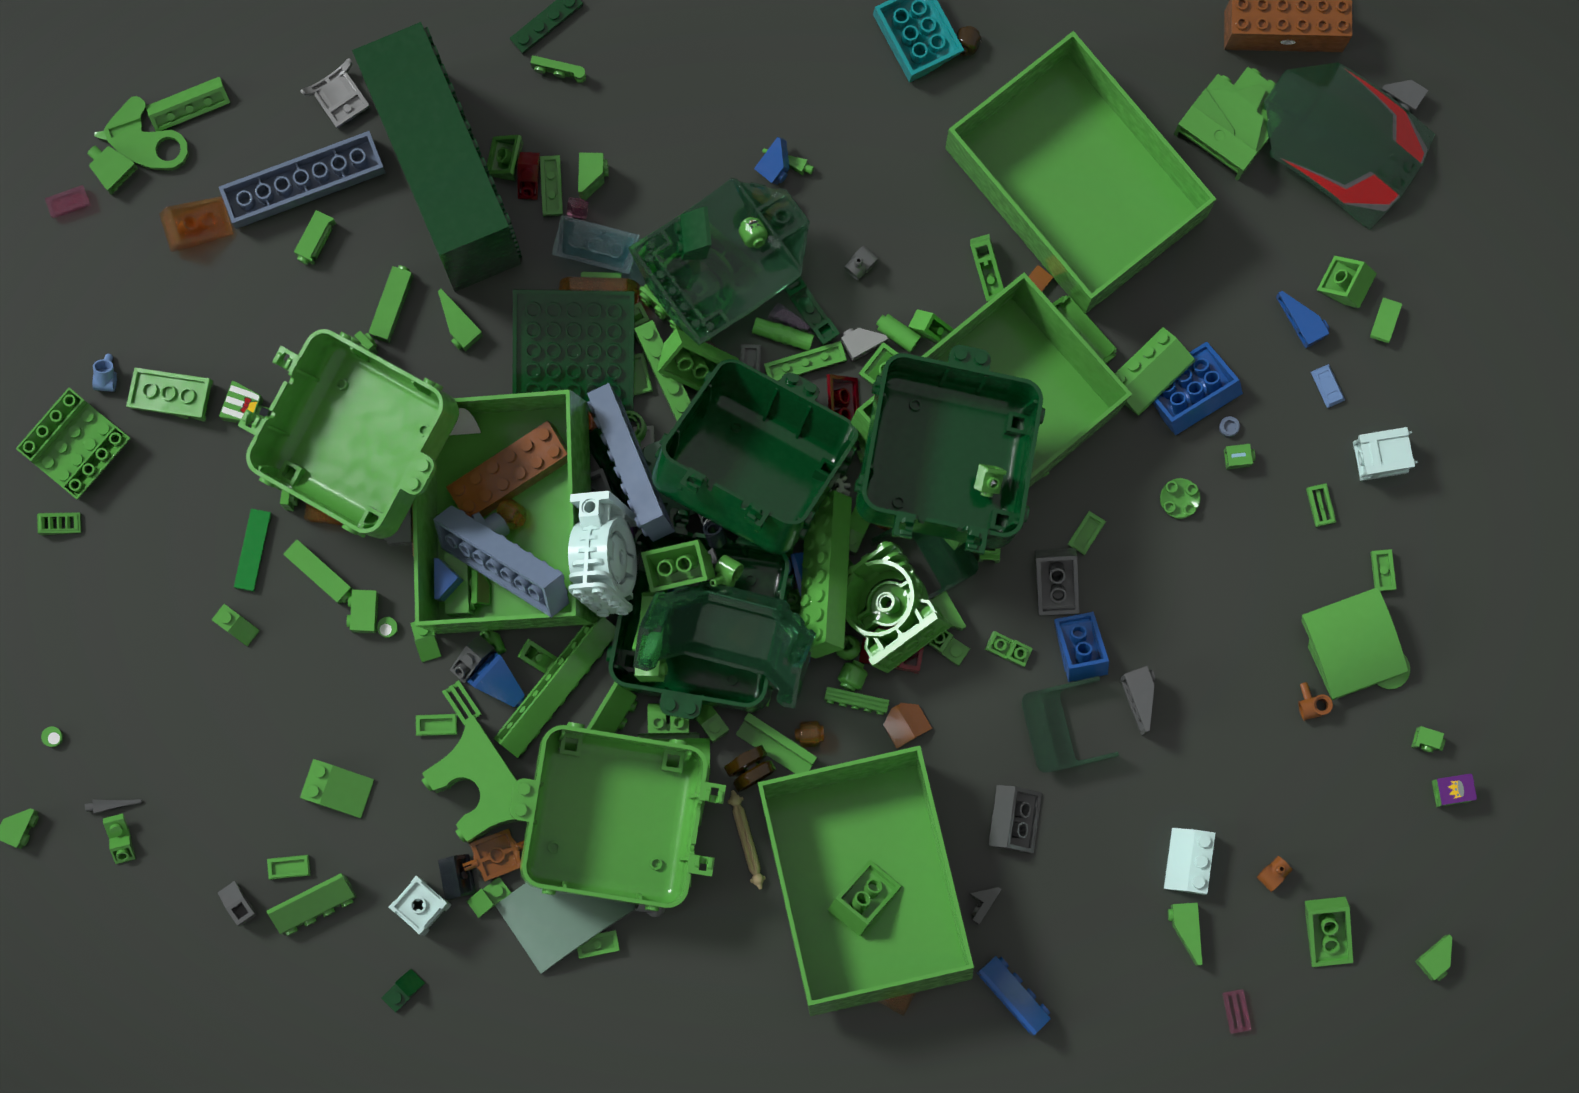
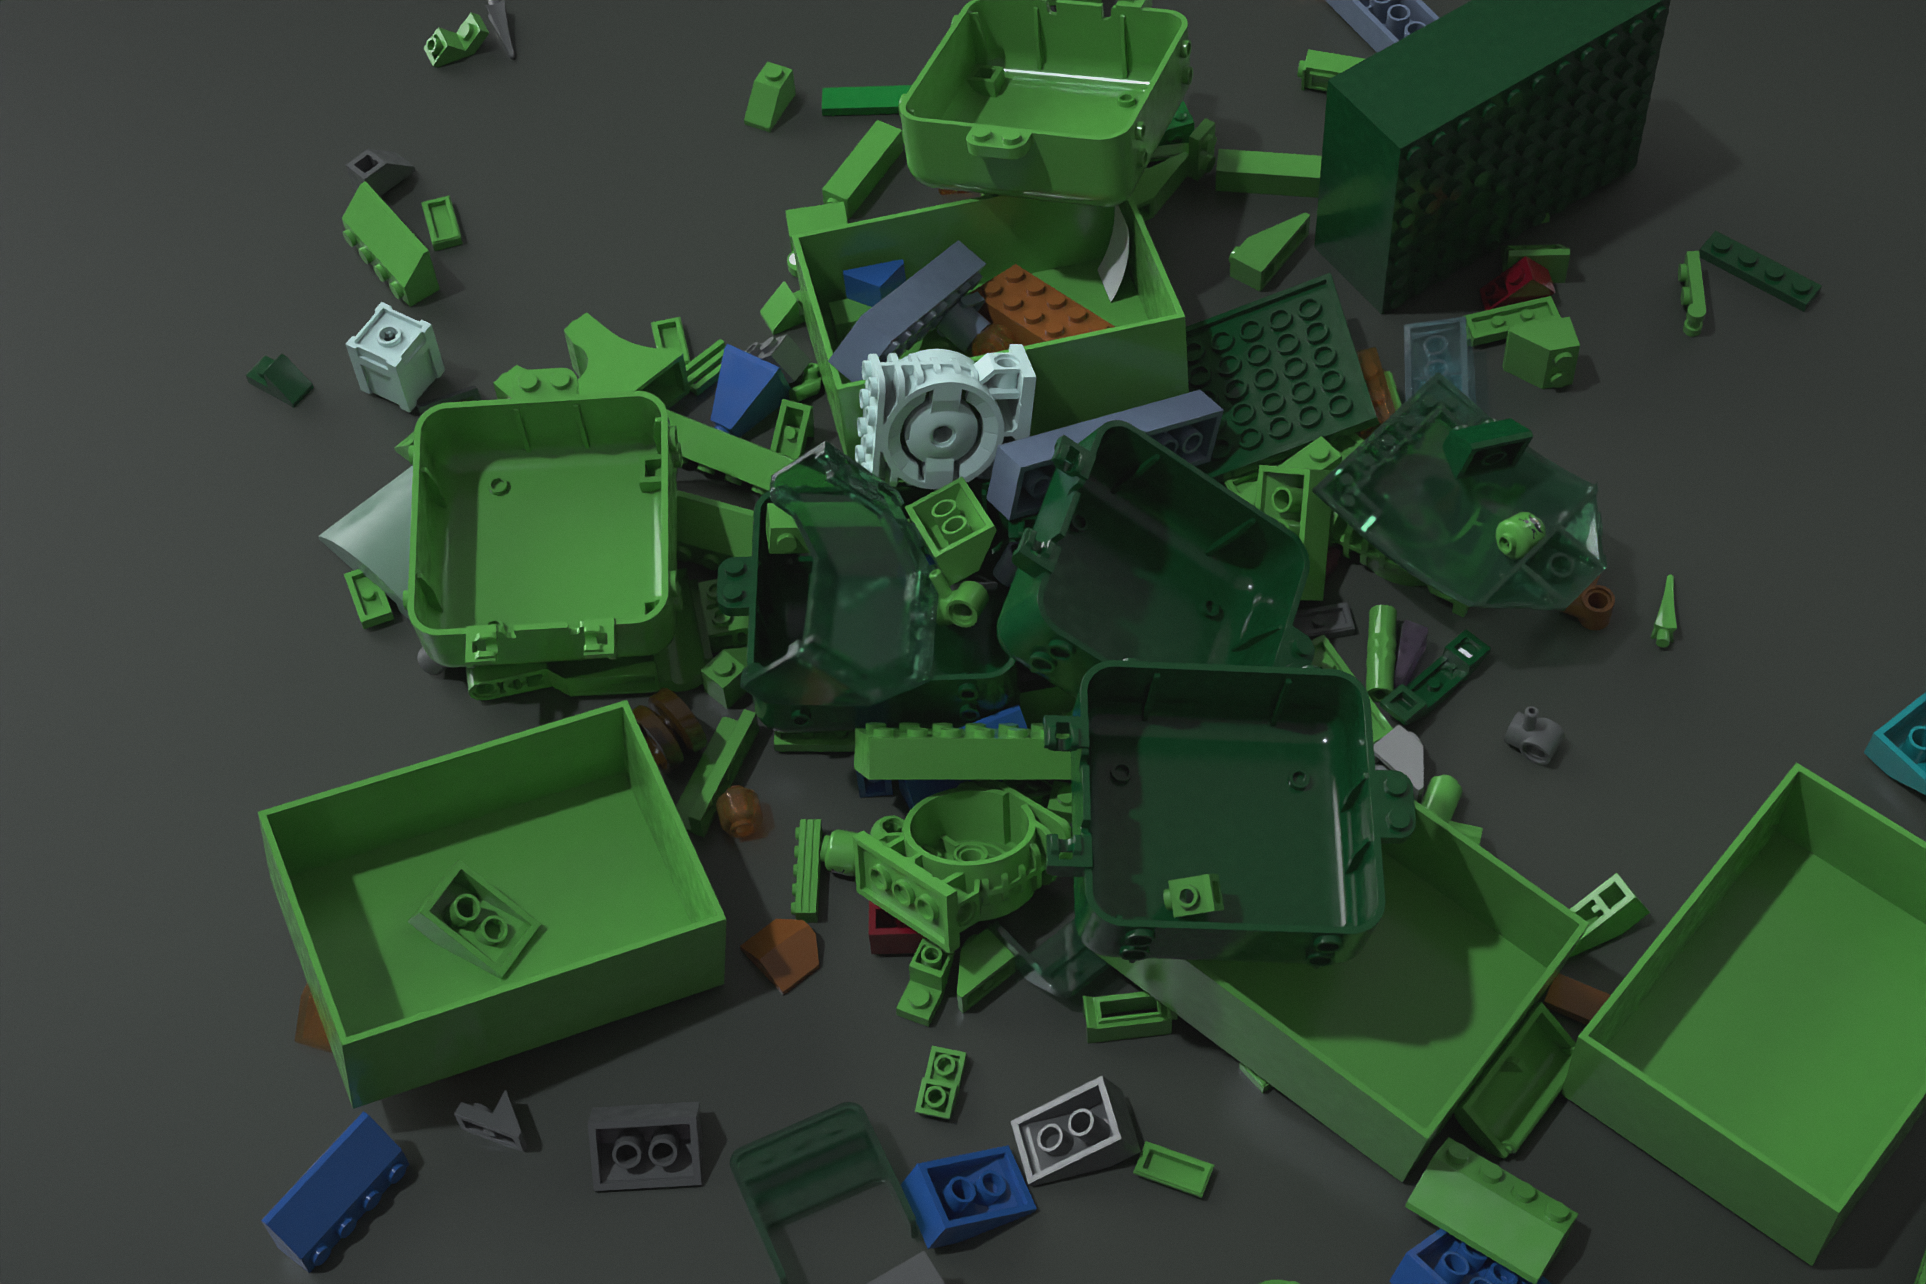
camera: 85 degrees right, 25 degrees down
(337, 788) = (559, 246): bright green slope -> none
(577, 208) = (1489, 356): clear pink plate -> none
(775, 162) = (1656, 583): blue slope -> none

